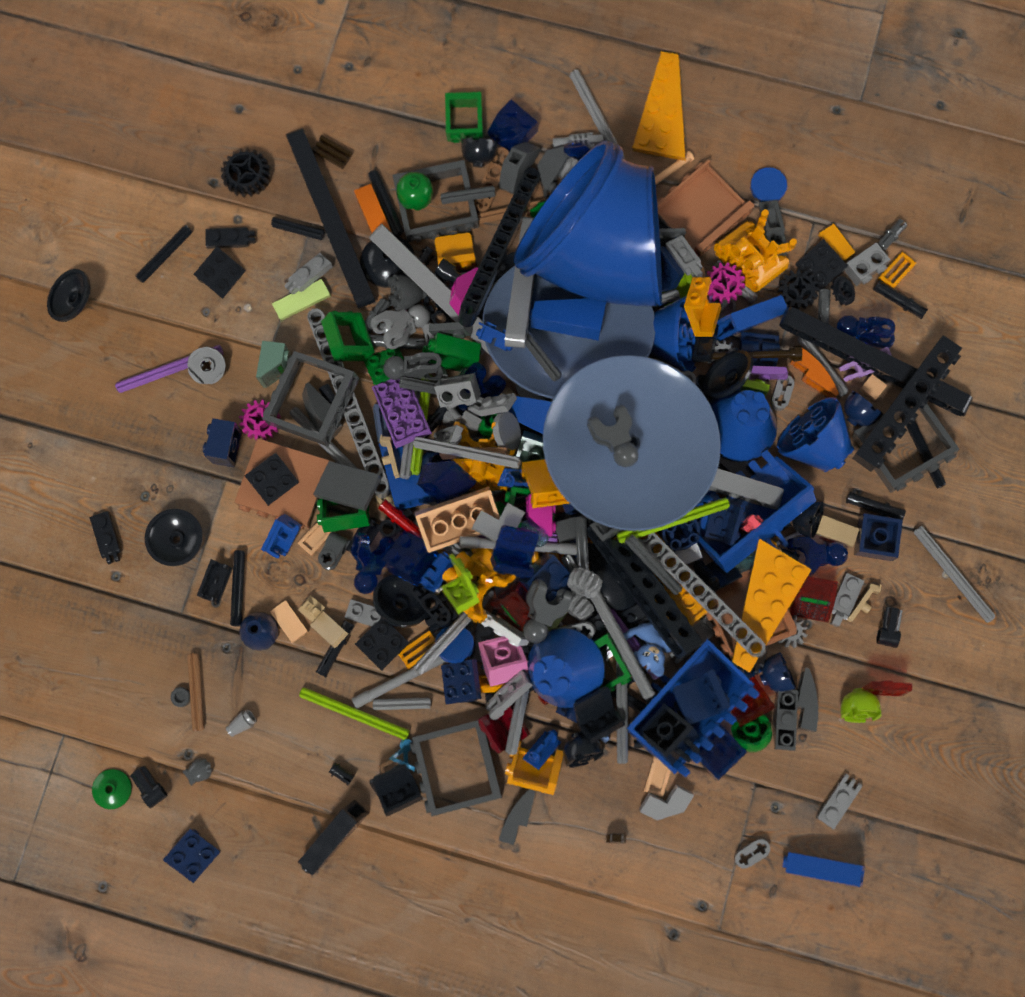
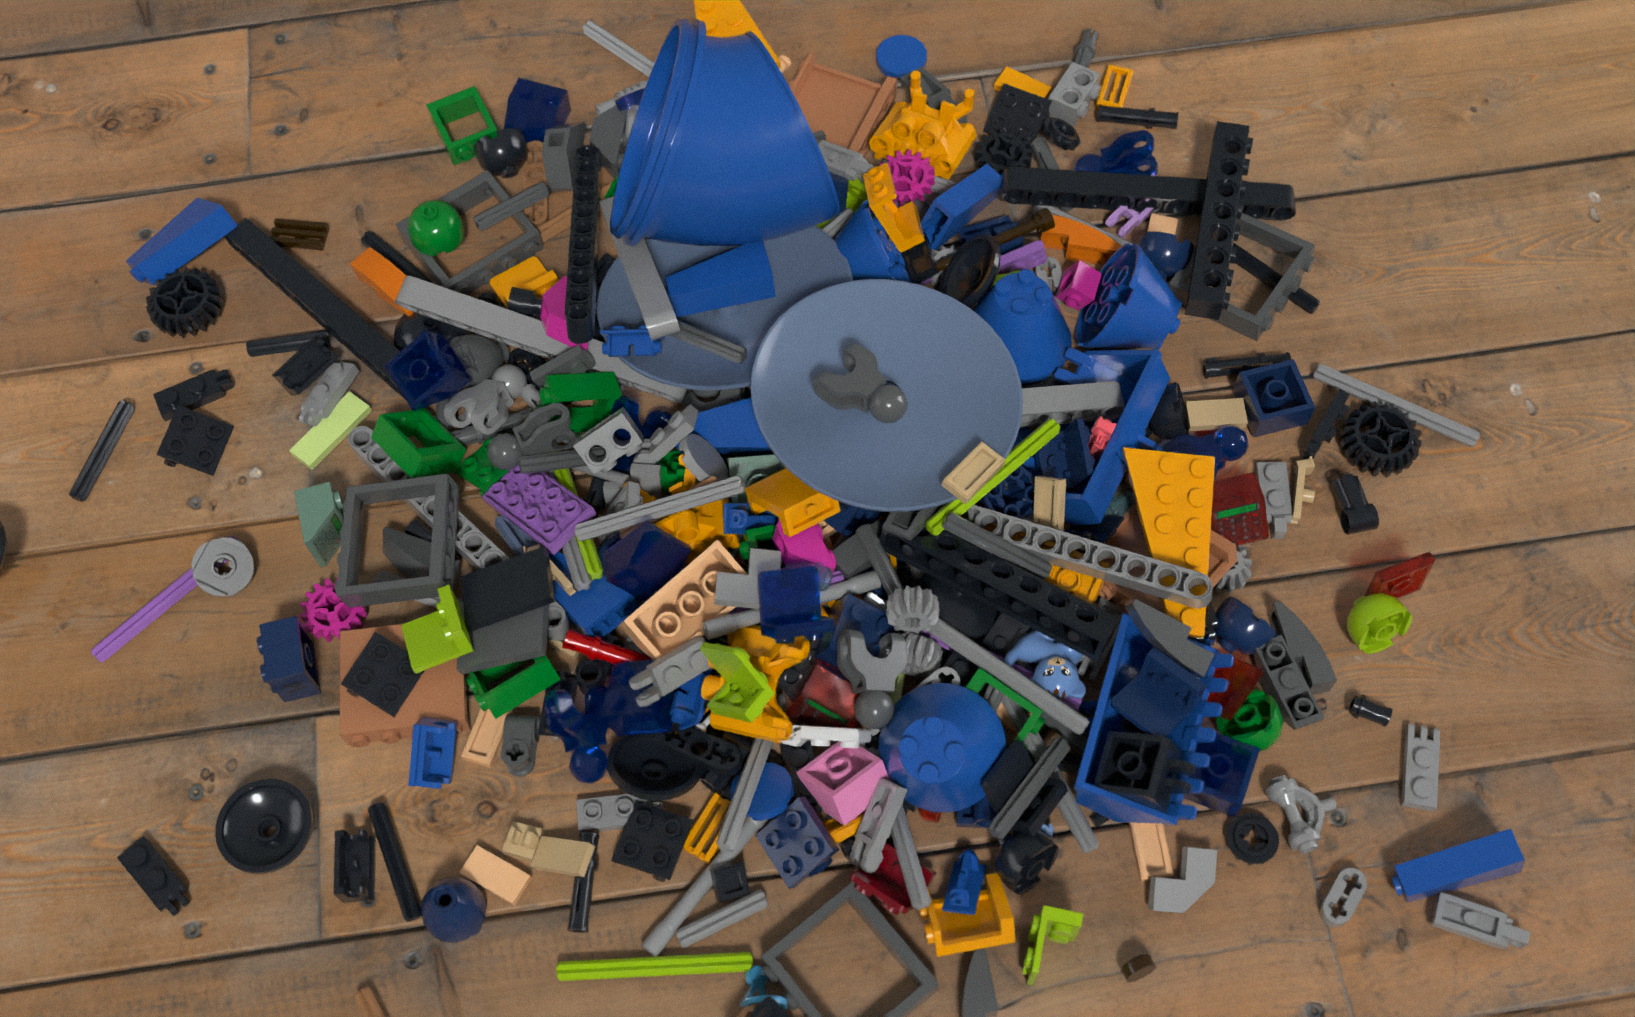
camera: 25 degrees left, 15 degrees down
(257, 128) = (180, 240): none -> blue slope
(301, 251) = (305, 366): none -> black hinge
(310, 468) = (437, 635): none -> lime bracket
(360, 458) = (507, 589): none -> black tile
(371, 291) = (427, 371): none -> clear blue slope
(414, 686) = (729, 881): none -> black tile
(429, 556) = (670, 671): none -> light grey hinge
(582, 798) = (1057, 924): none -> lime bracket
(603, 714) = (1029, 788): none -> dark grey axle
(657, 519) = (973, 472): none -> tan tile
(699, 551) = (1049, 502): none -> tan tile
(726, 668) = (1169, 637): none -> dark grey slope
(728, 796) = (1263, 830): none -> black gear
(748, 808) = (1302, 834): none -> light grey piece
(797, 406) = (1078, 285): none -> dark pink brick
(818, 903) = (1477, 923): none -> light grey hinge
(828, 756) = (1370, 710): none -> black pin
(900, 571) = (1325, 429): none -> black hinge
(915, 589) = (1374, 446): none -> black gear

